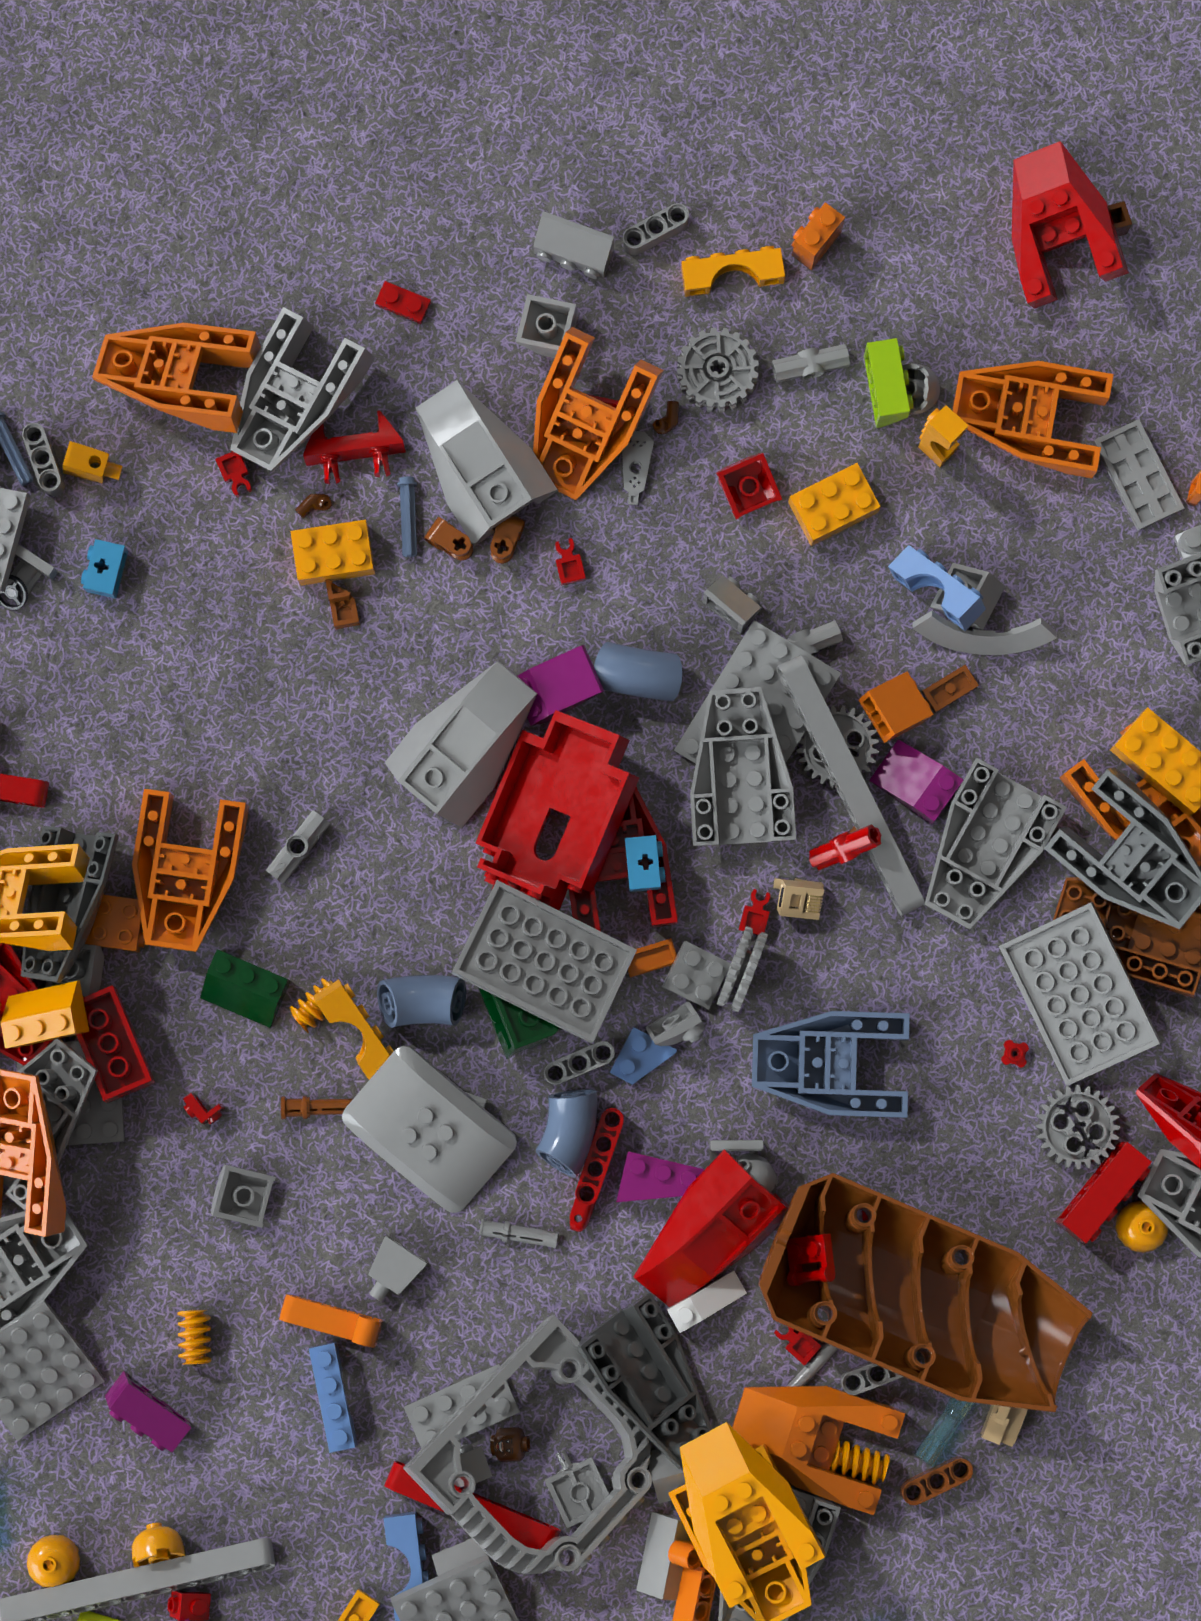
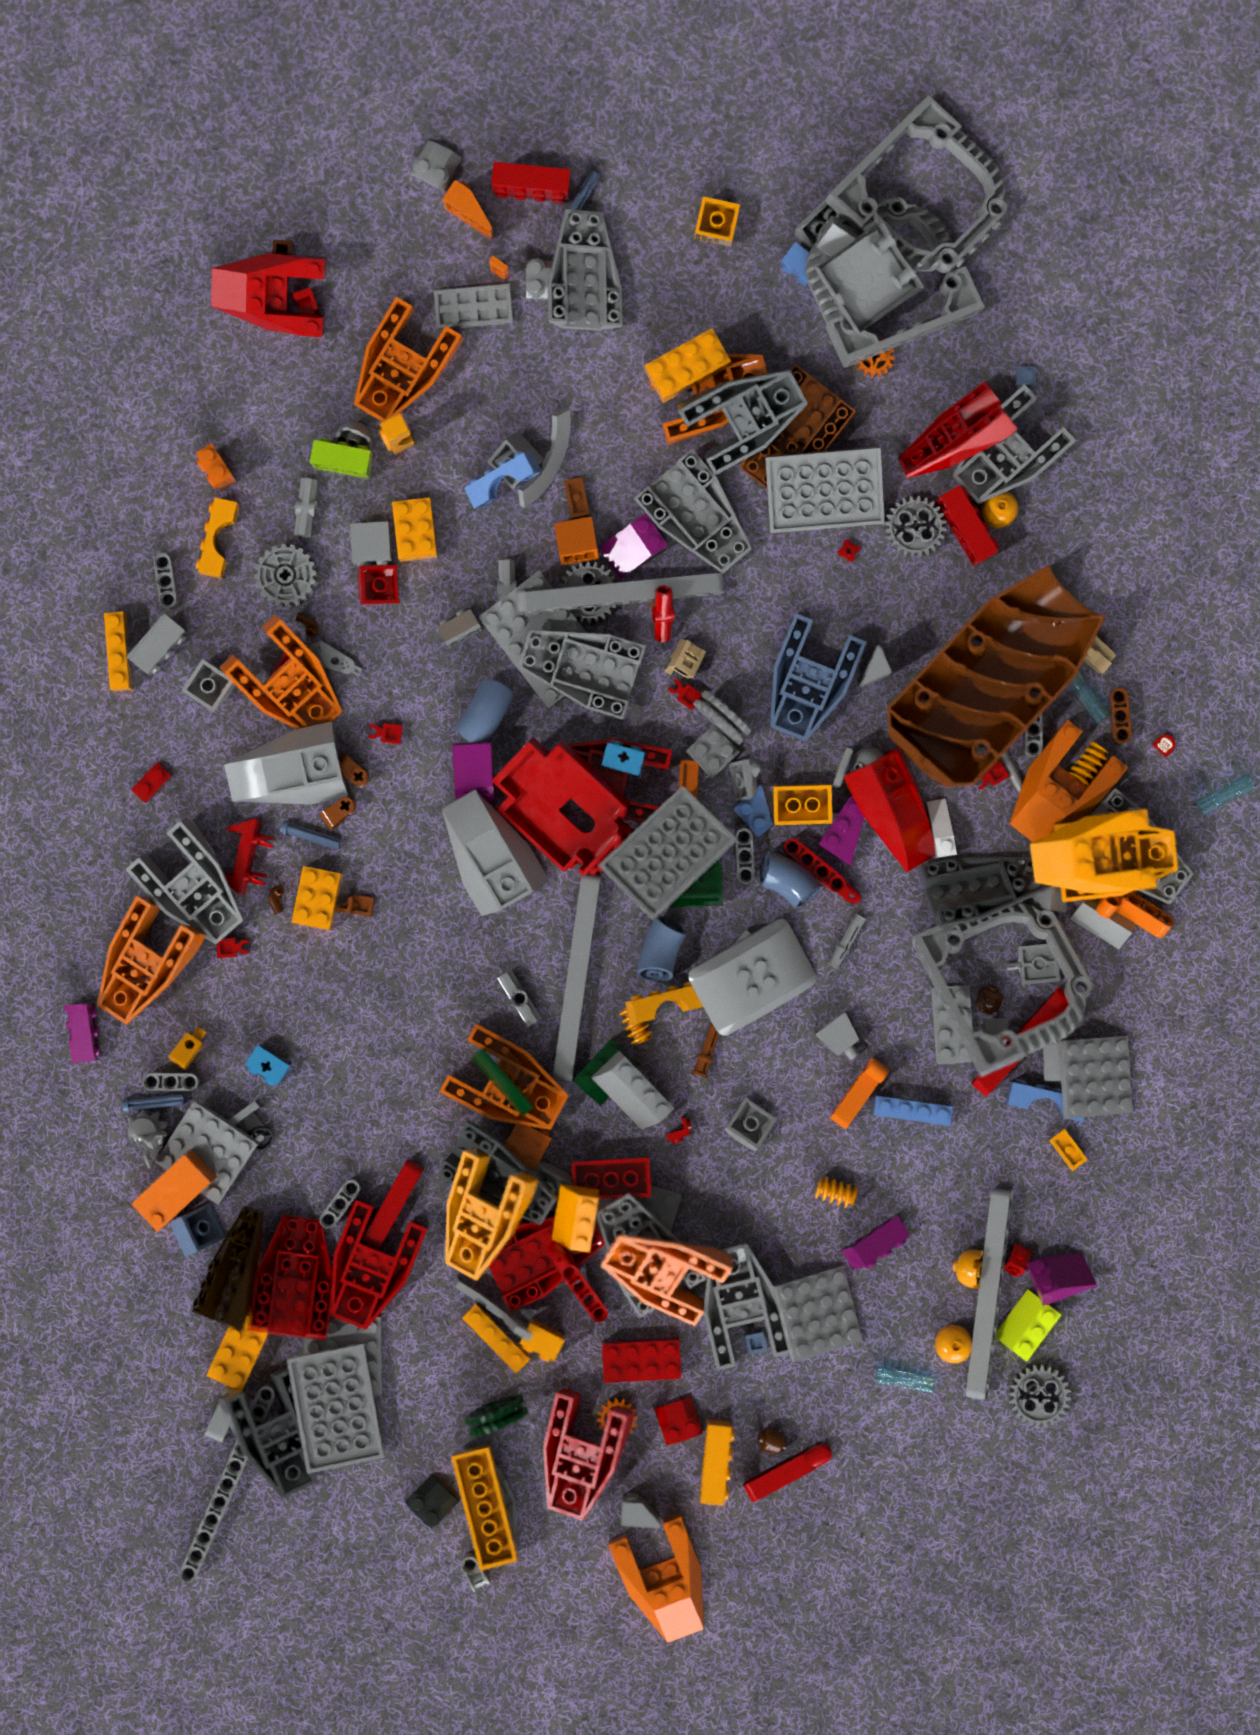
camera: 70 degrees left, 5 degrees up
(66, 331) = (83, 1032): none -> magenta wedge
(183, 861) = (502, 1082): none -> dark green slope
(230, 1030) = (632, 1092): none -> light grey slope
(350, 908) = (576, 977): none -> light grey beam
(566, 193) = (116, 643): none -> light orange arch
(671, 1111) = (802, 804): none -> light orange slope
(796, 457) = (371, 543): none -> light grey brick
(810, 1250) = (933, 744): red plate -> none
(876, 1142) = (876, 669): none -> light grey slope
(921, 1553) = (1164, 745): none -> tile
(1065, 270) = (306, 301): none -> red panel

